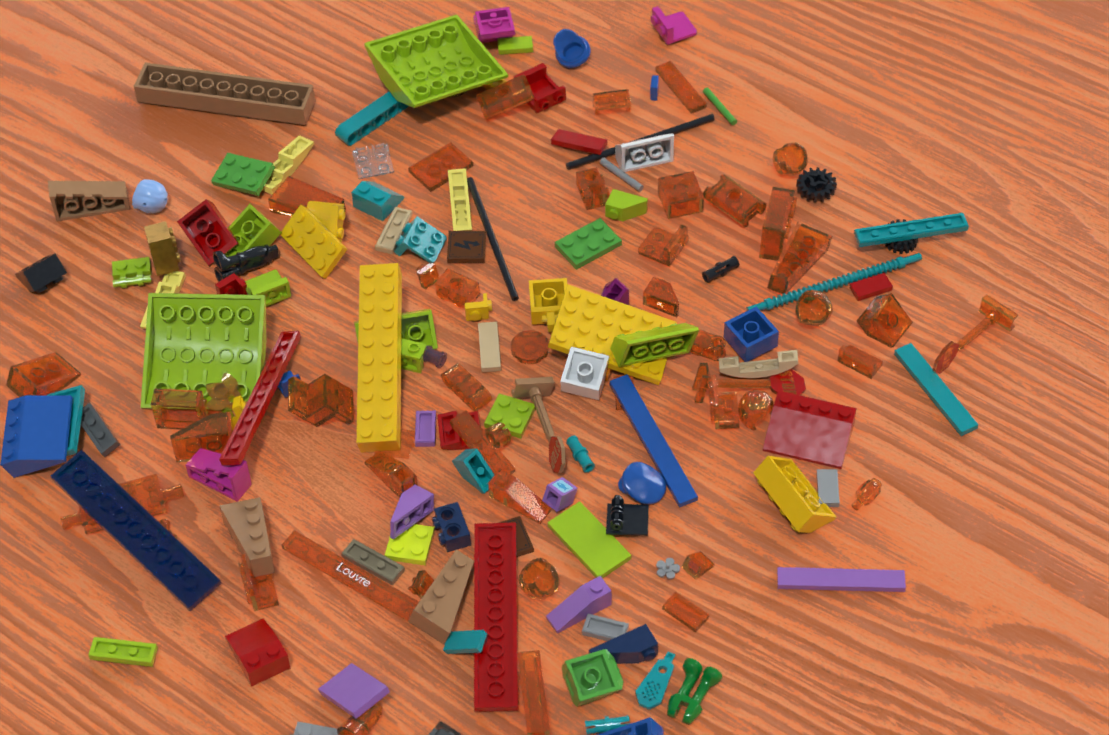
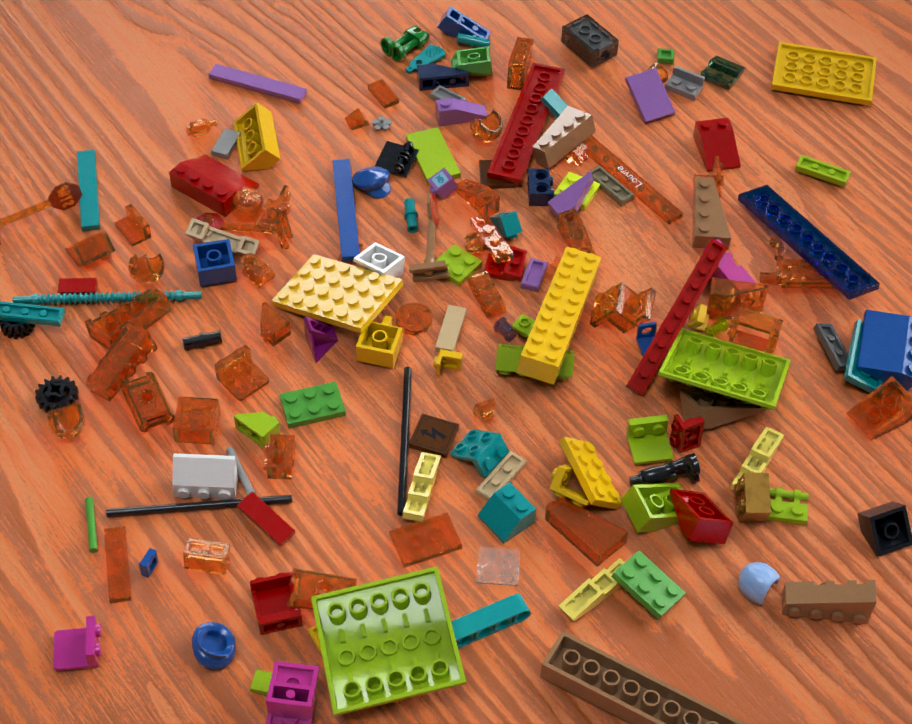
camera: 165 degrees left, 0 degrees up
(222, 392) = (709, 336): clear orange plate -> none
(457, 288) = (460, 387): clear orange brick -> none
(653, 344) = (306, 258): lime slope -> none

